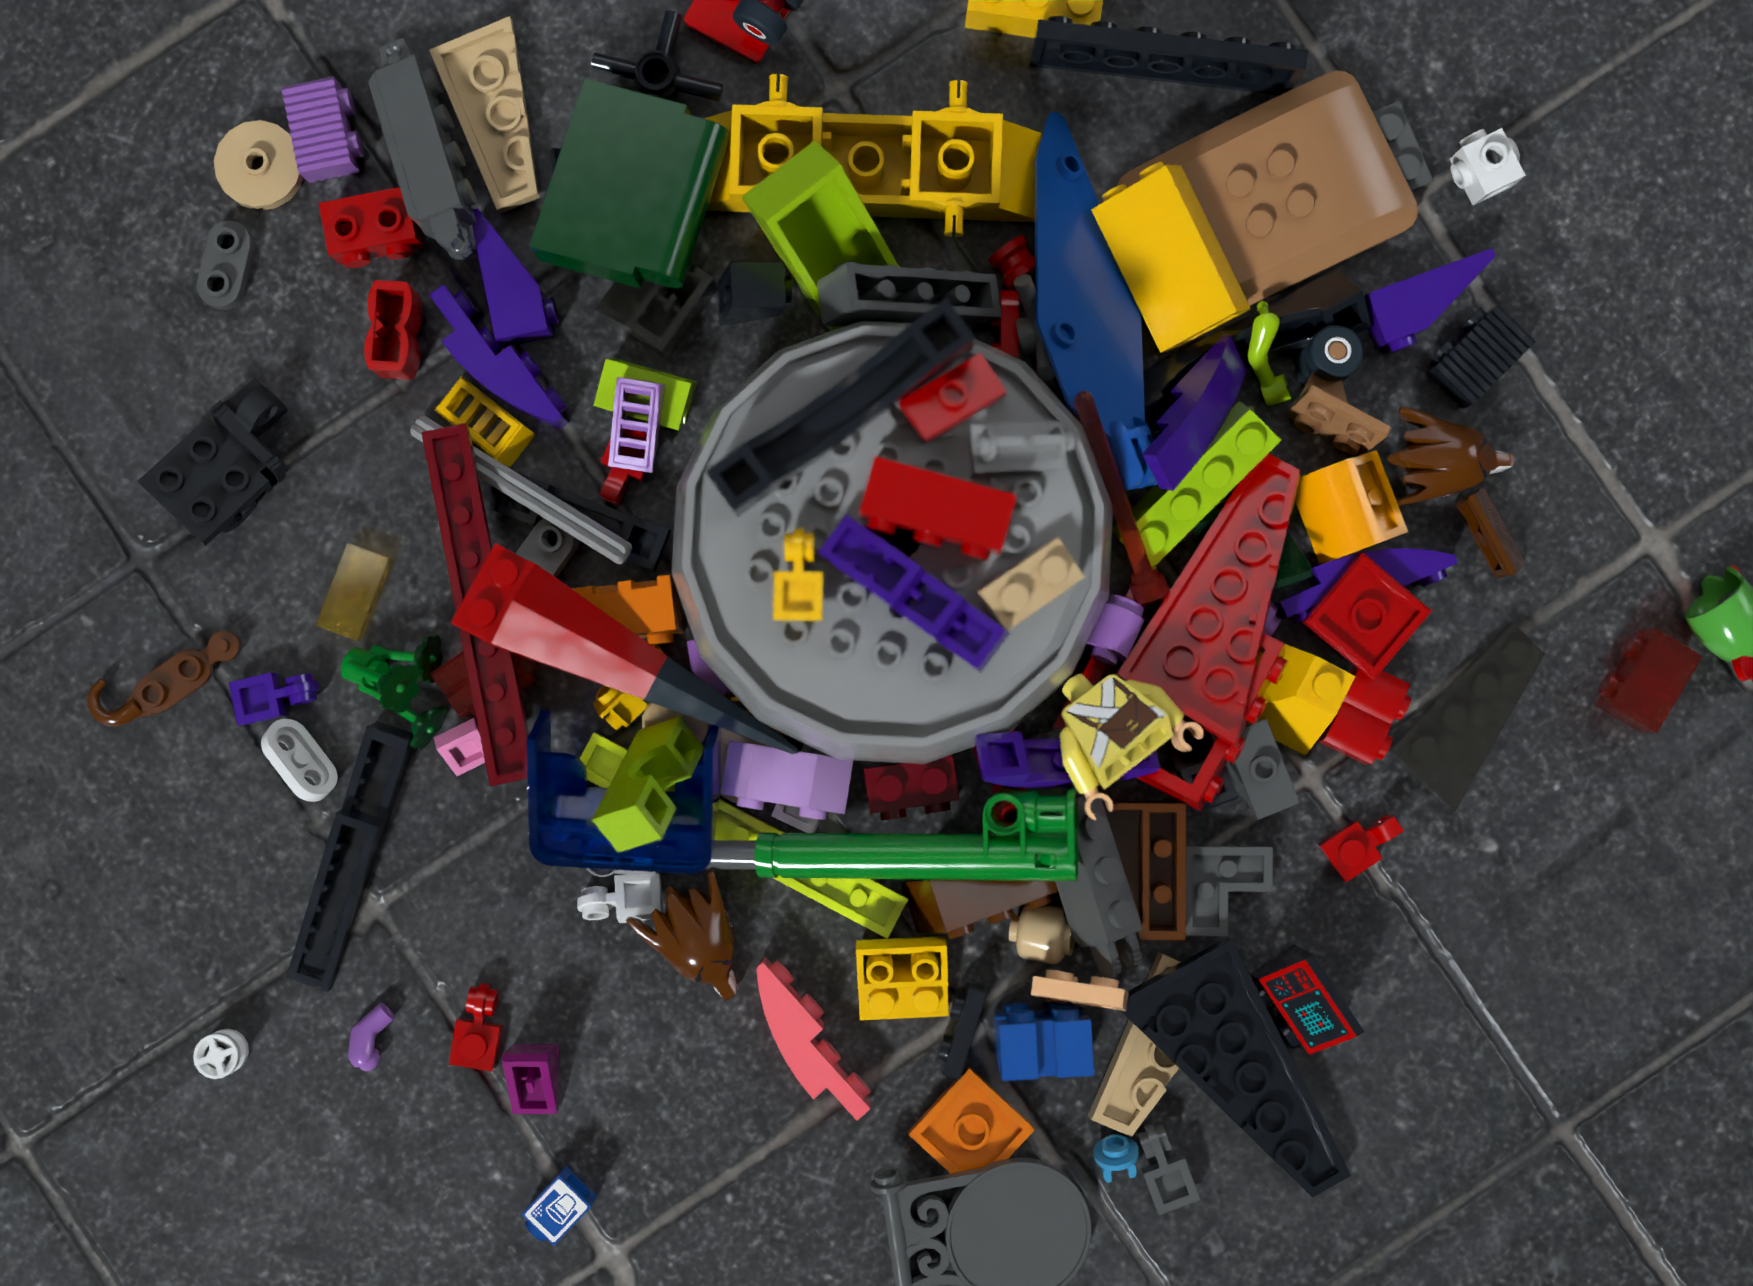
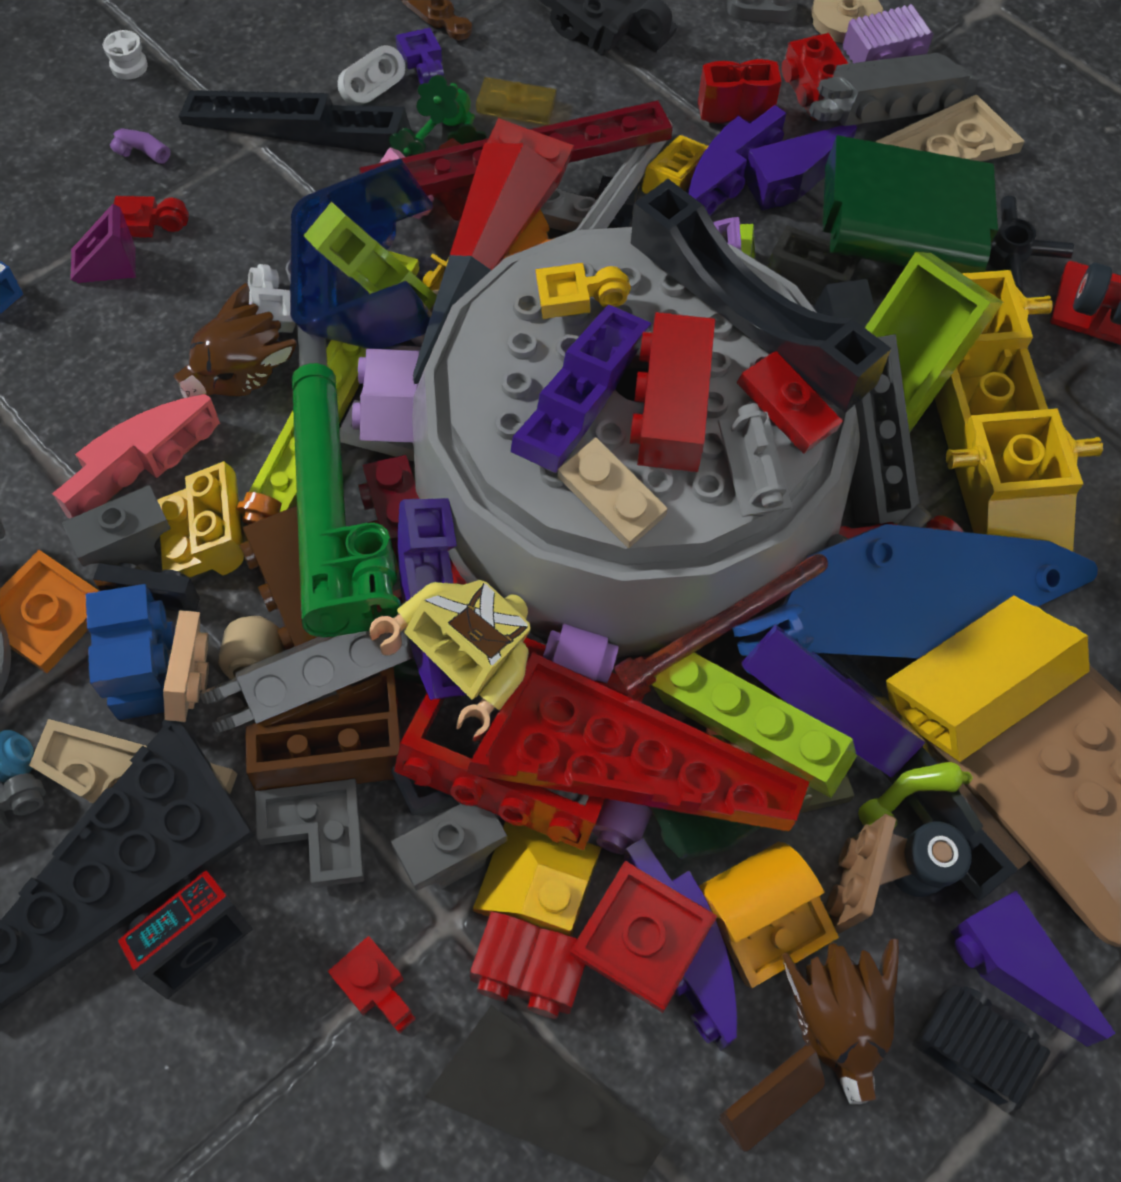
camera: 80 degrees right, 25 degrees down
(902, 1057) = (118, 530): none -> dark grey brick
(905, 917) = (257, 507): none -> orange plate

